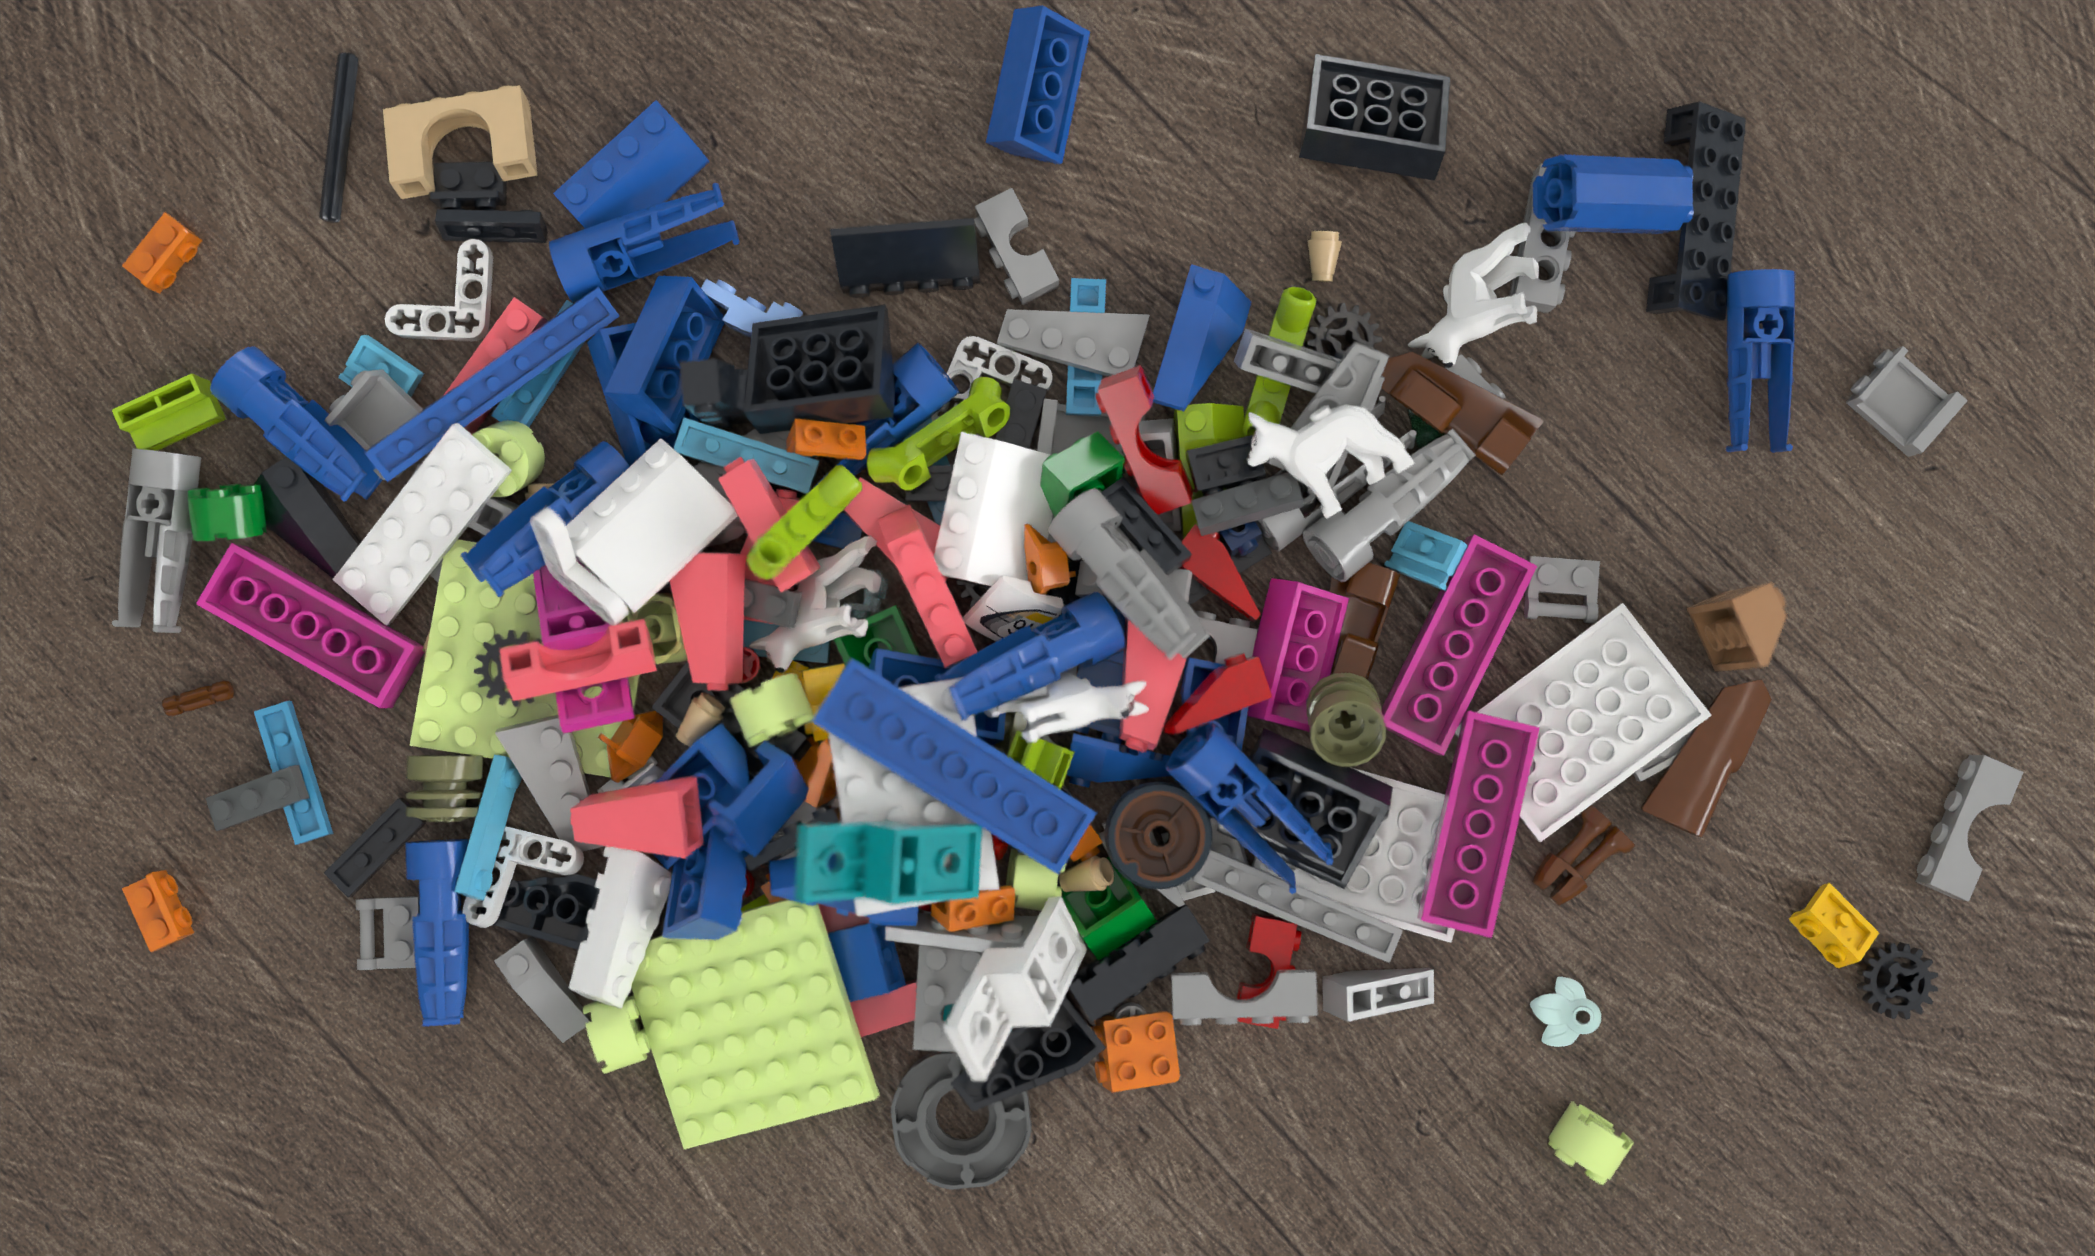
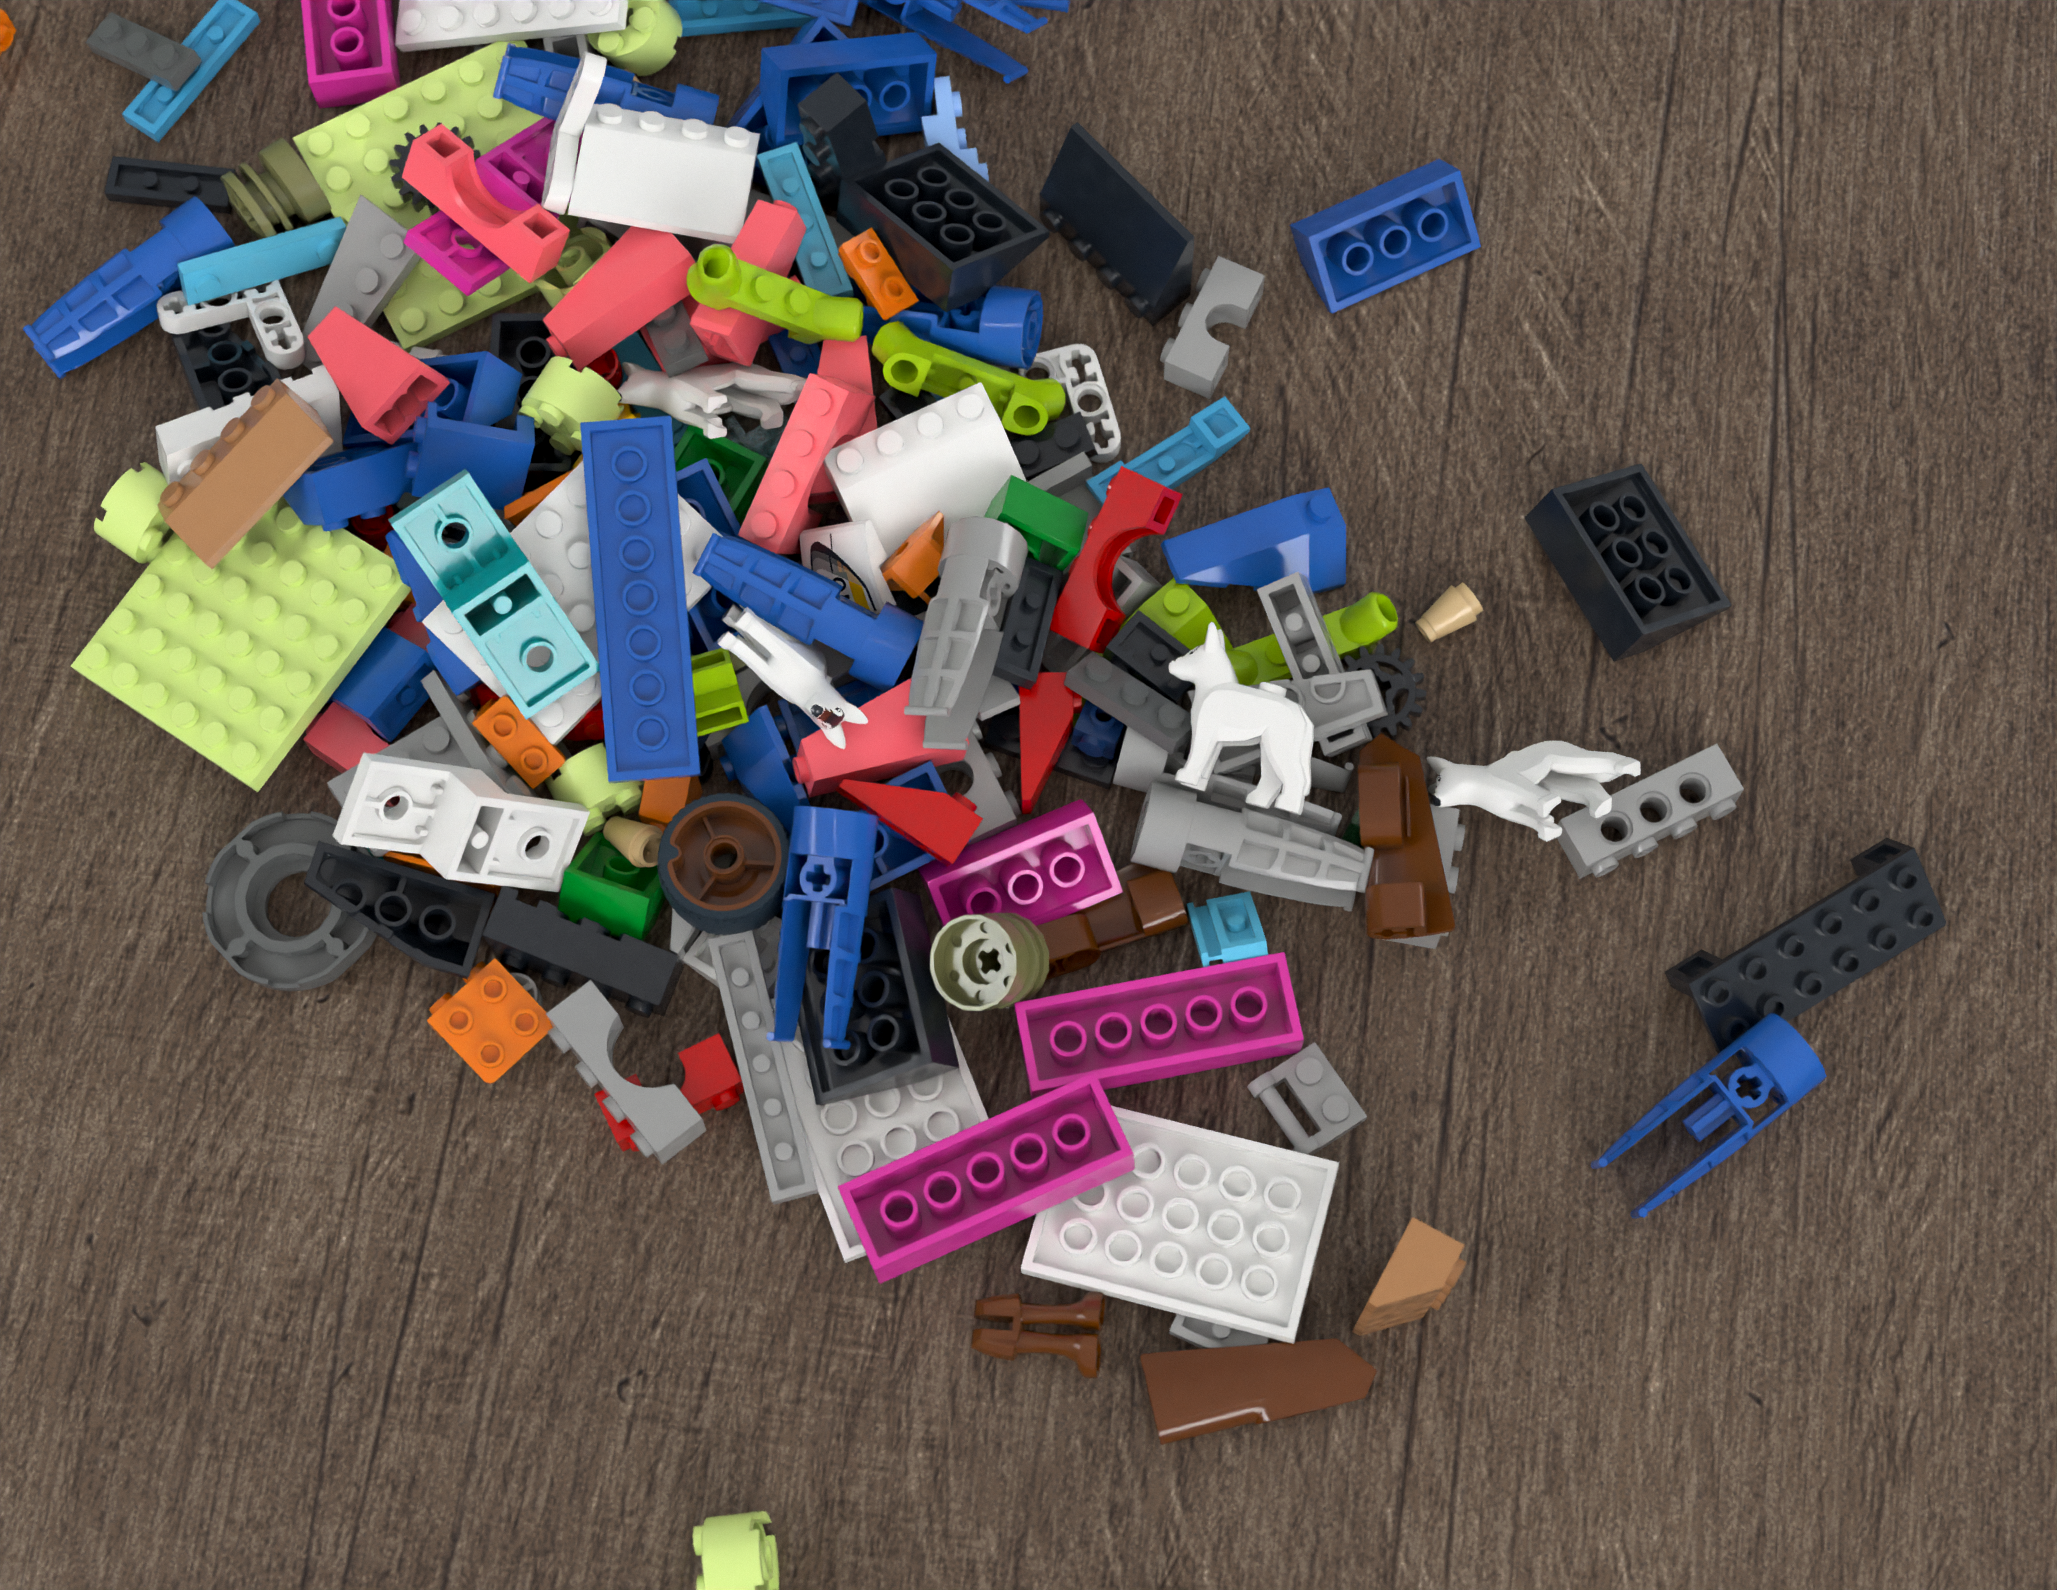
camera: 55 degrees right, 15 degrees down
(398, 932) = (96, 257): light grey plate -> none
(543, 988) = (145, 400): light grey slope -> none
(633, 744) = (445, 329): orange piece -> none
(656, 954) = (244, 472): none -> medium nougat slope
(700, 718) = (522, 354): tan cone -> none
(1078, 339) = (1171, 443): light grey wing -> none
(1376, 992) = (736, 1225): light grey slope -> none
(1560, 1011) = (856, 1438): light aqua plate -> none
(1613, 194) = (1742, 827): blue brick -> none
(1903, 402) = (1797, 1306): light grey panel -> none

